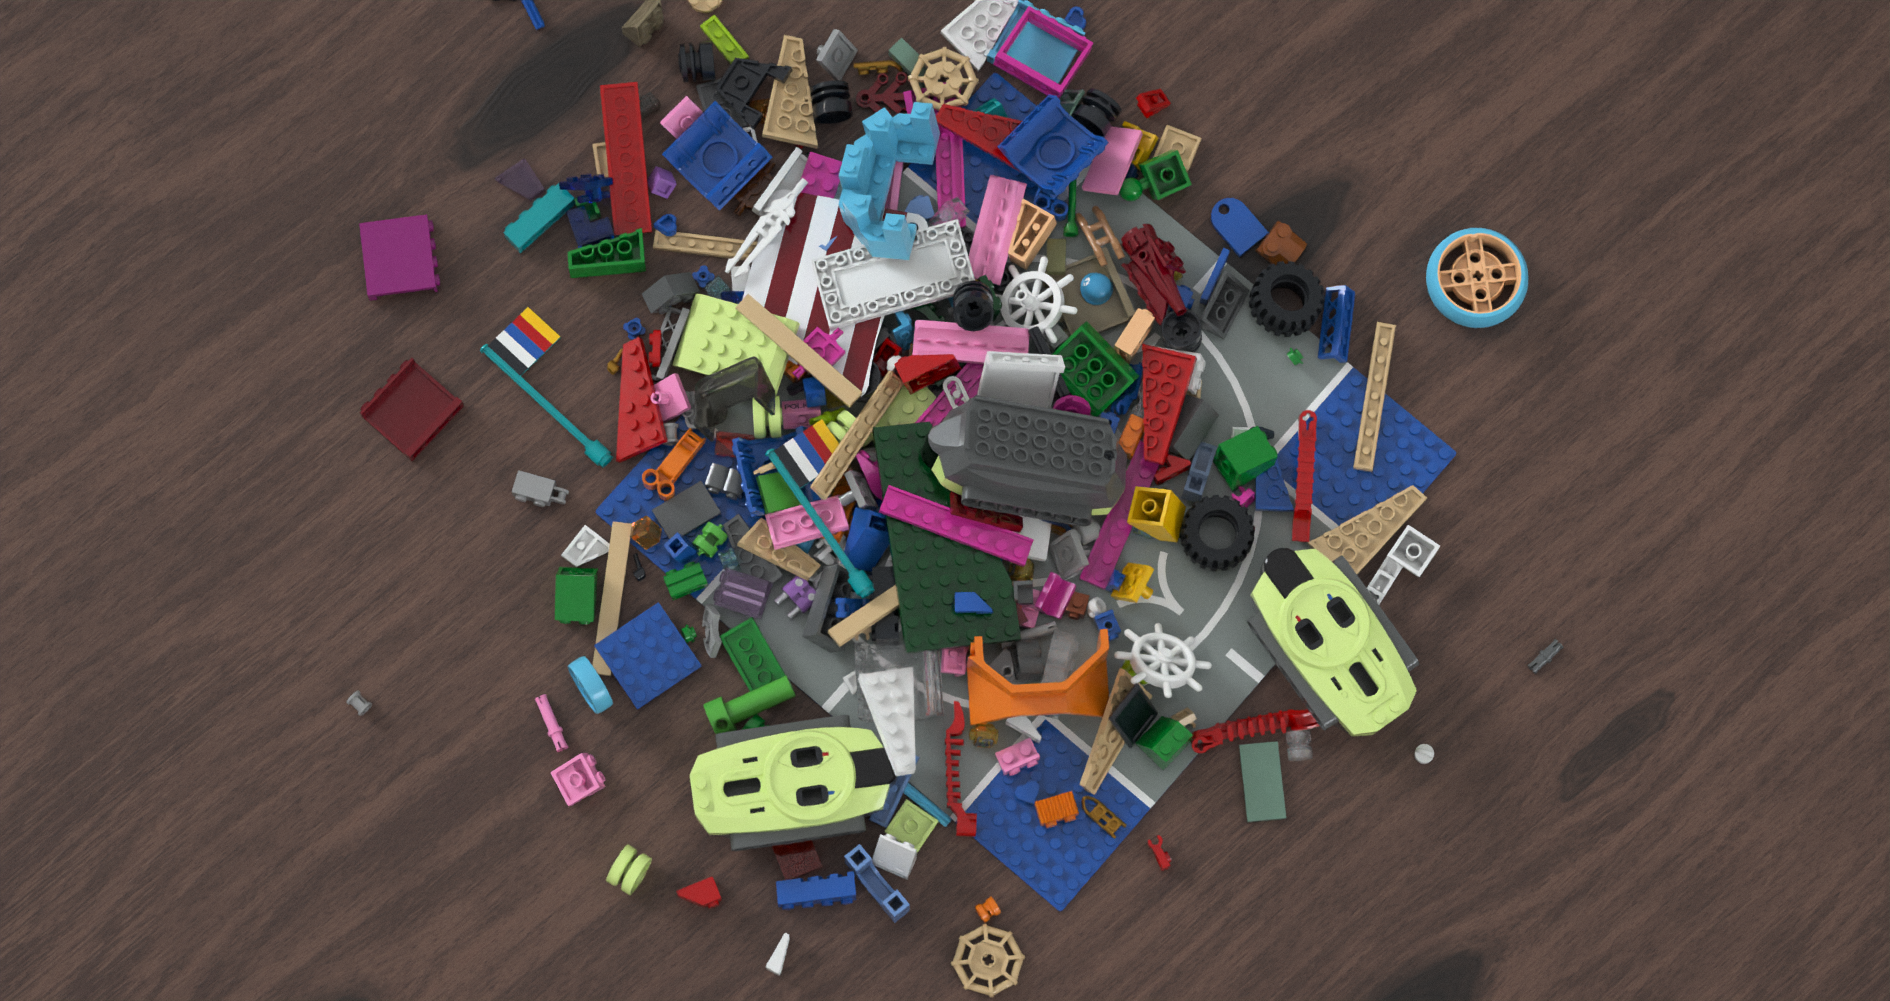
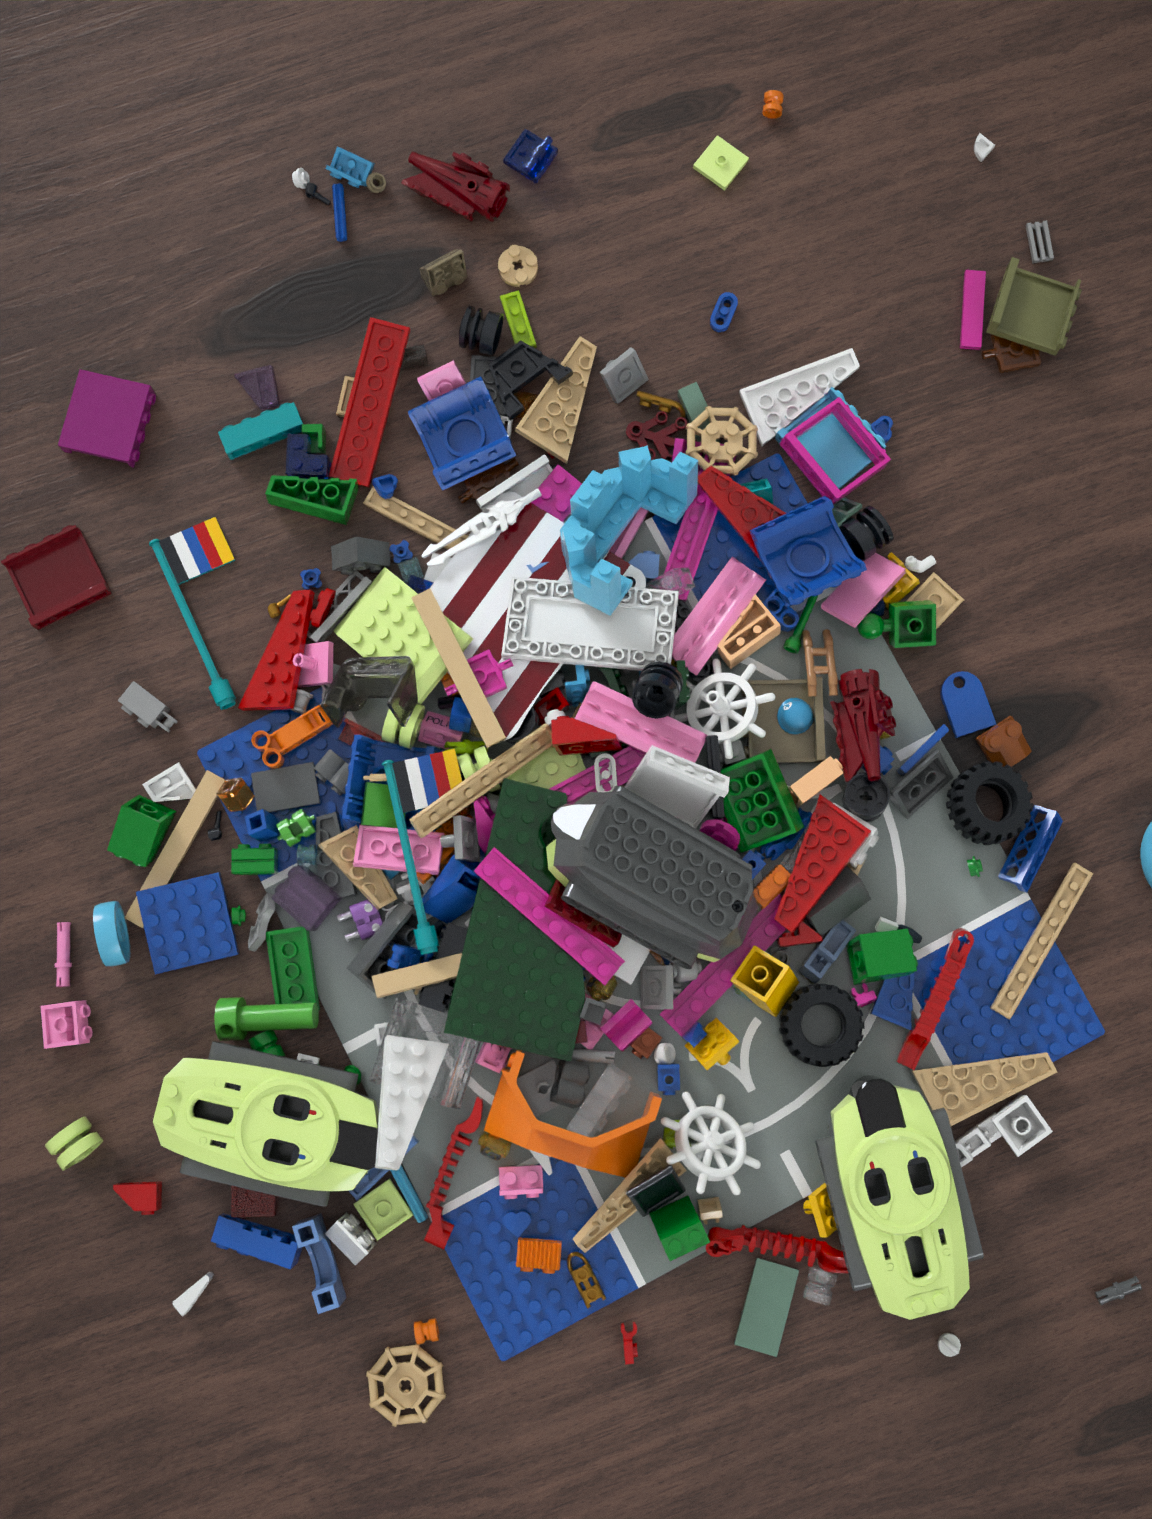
camera: 25 degrees right, 5 degrees up
(590, 184) = (322, 416): clear blue plate -> none
(661, 182) = (397, 440): medium lavender panel -> none
(831, 102) = (599, 421): black wheel -> none
(970, 602) = (531, 1006): blue slope -> none
(1056, 256) = (766, 667): olive tile -> none
(1152, 102) = (927, 543): red slope -> none
(1152, 124) = (919, 566): none -> white arm
(1276, 682) = (821, 1209): none -> yellow plate

